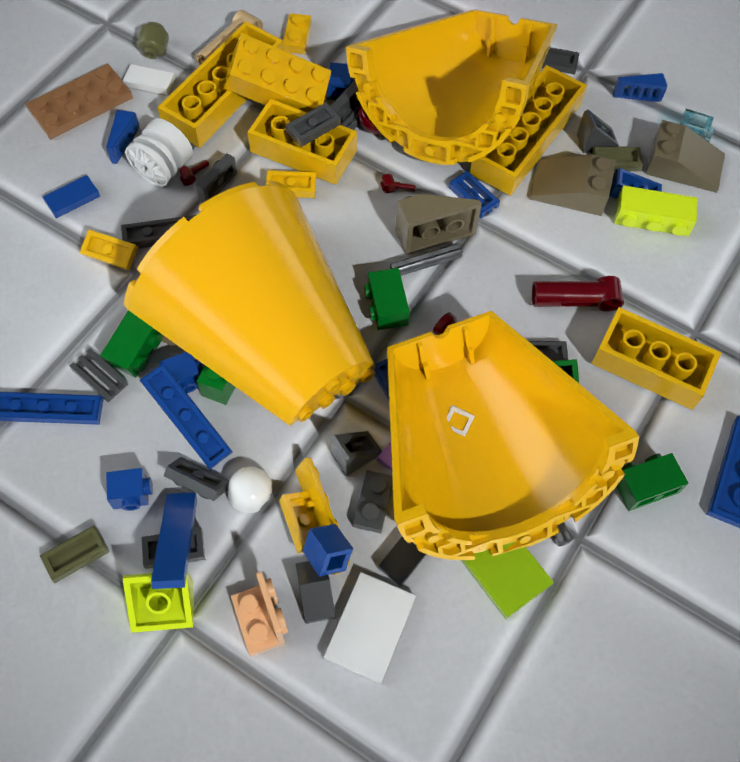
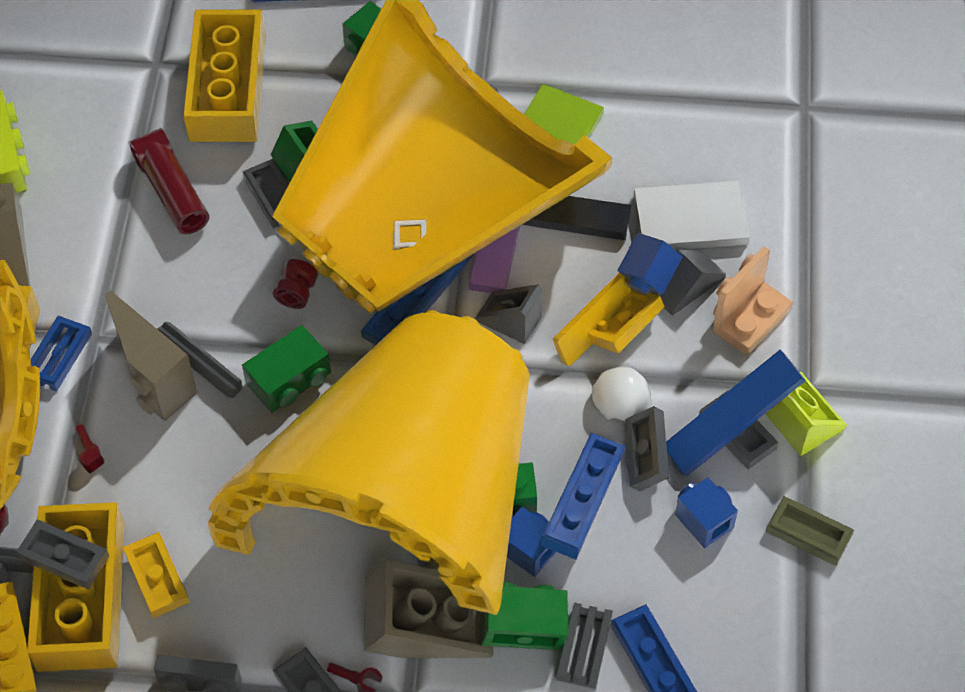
camera: 115 degrees left, 5 degrees down
(373, 501) = (558, 271): dark grey plate -> none

